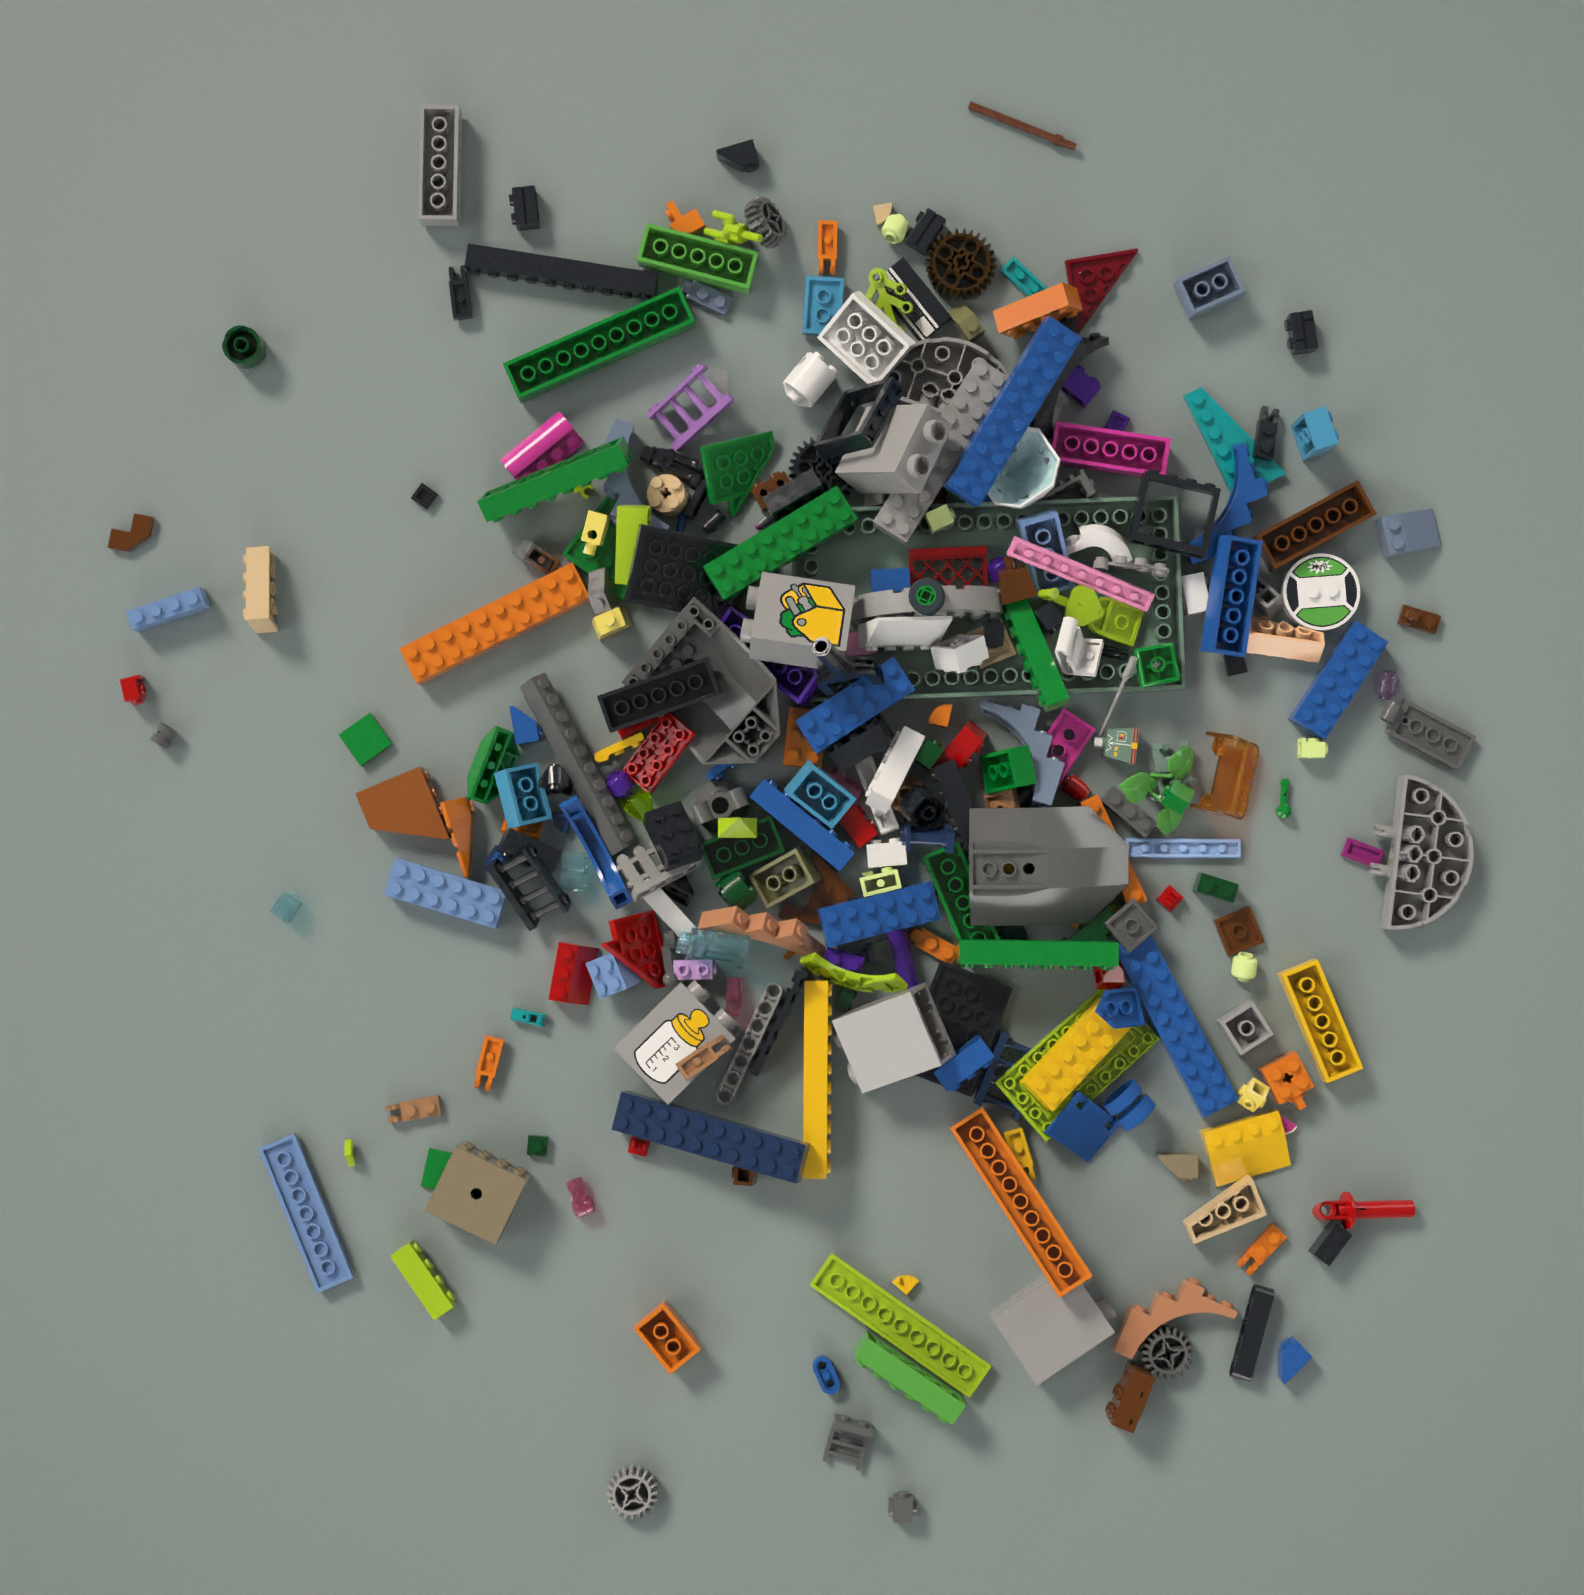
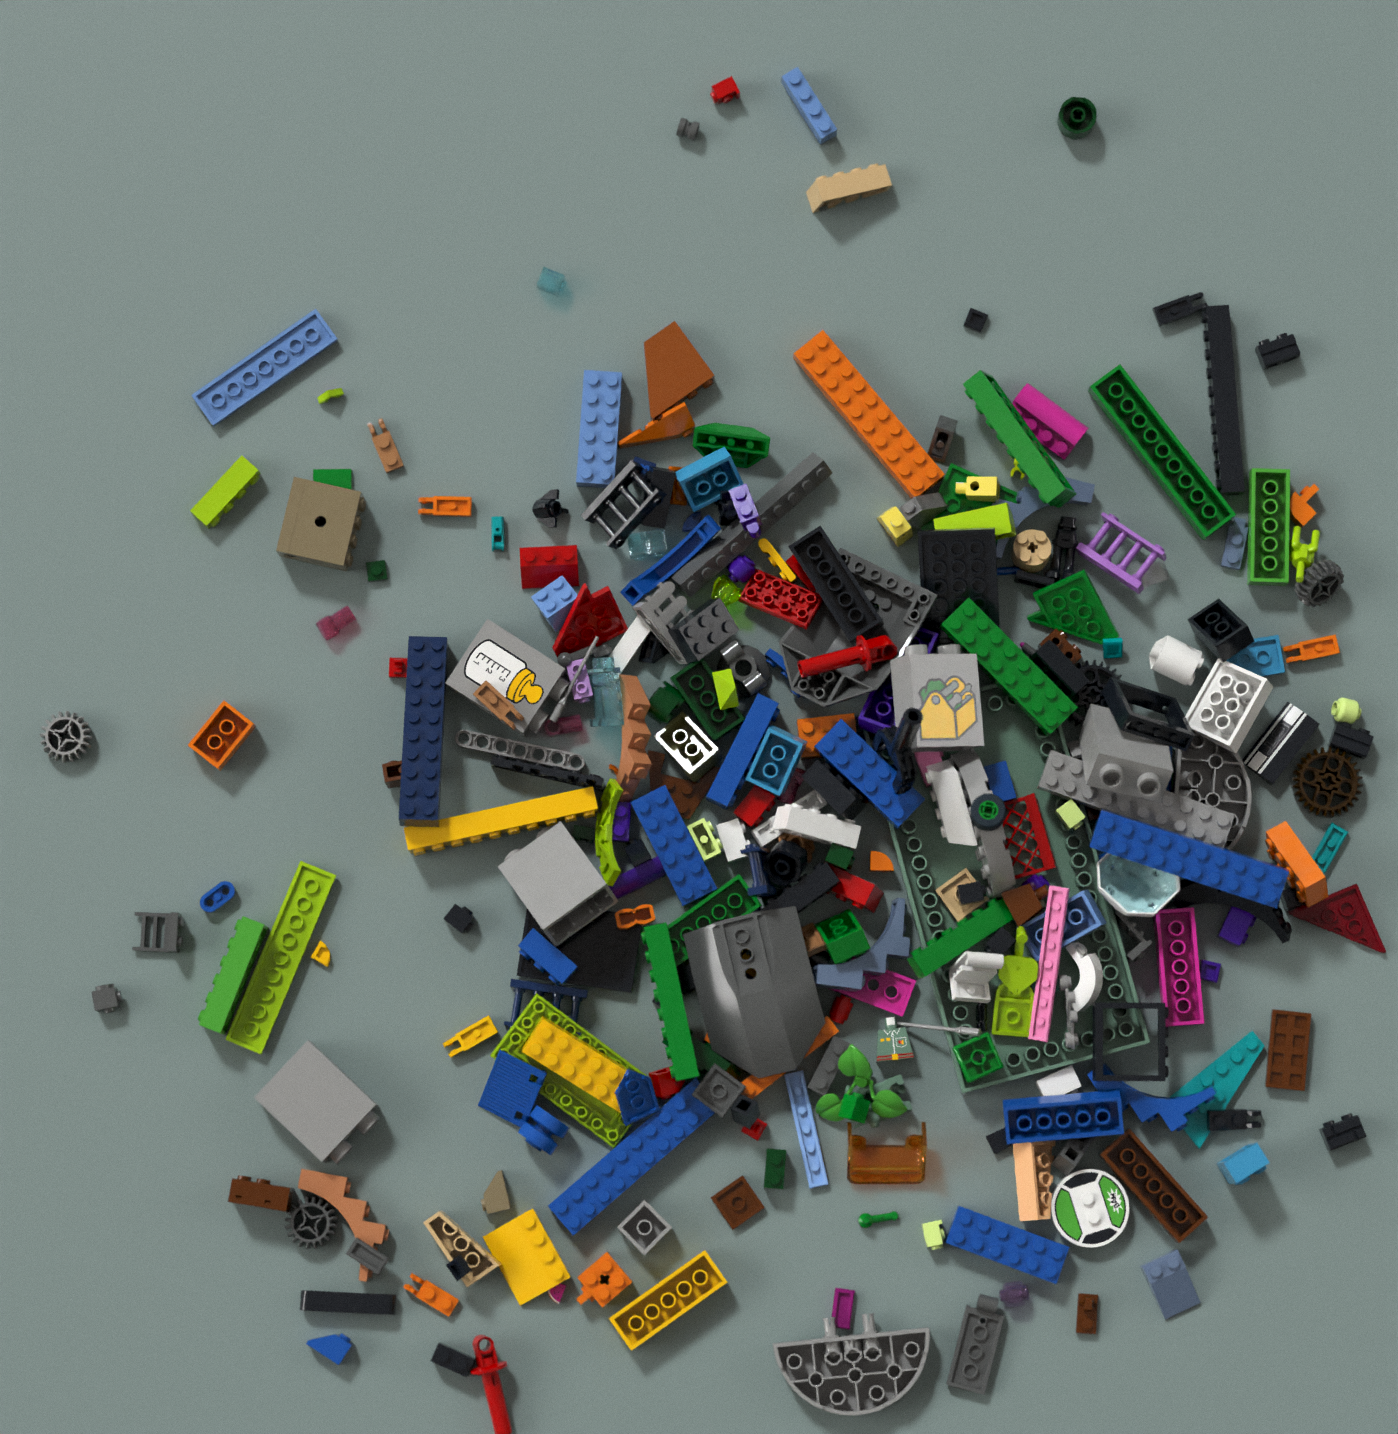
camera: 70 degrees right, 5 degrees down
(140, 531) = (876, 61): reddish brown tile -> none
(365, 739) = (728, 318): green tile -> none
(440, 165) = (1297, 261): light grey brick -> none
(515, 963) = (547, 508): none -> black brick
(525, 728) = (774, 466): blue slope -> none
(563, 765) = (746, 510): none -> brick
(713, 521) = (1017, 601): black pin -> none
(713, 992) = (561, 704): none -> light grey piece
(736, 681) = (864, 652): none -> red piece
(740, 156) = (1379, 545): black slope -> none
(781, 439) = (1112, 648): none -> teal tile
(790, 328) = (1221, 630): none -> black brick
(881, 212) = (1359, 694): tan tile -> none
(885, 299) = (1274, 716): lime plant -> none
(902, 1140) = (460, 918): none -> black brick
(933, 945) = (658, 899): orange hinge -> none
(942, 963) = (640, 915): none -> orange brick
(959, 652) = (944, 863): white brick -> none
(966, 323) = (1270, 800): olive slope -> none
(1021, 1202) = (426, 1042): orange brick -> none
(1156, 903) = (745, 1111): none -> black brick
(1209, 287) = (1363, 1029): sand blue brick -> none
(1210, 365) = (1288, 1050): none -> reddish brown plate
(1213, 1305) = (367, 1256): none -> dark grey tile
(1244, 966) = (703, 1215): yellowish green head -> none
(1247, 1219) = (458, 1267): none -> black plate
(1253, 1094) = (580, 1250): light yellow brick -> none

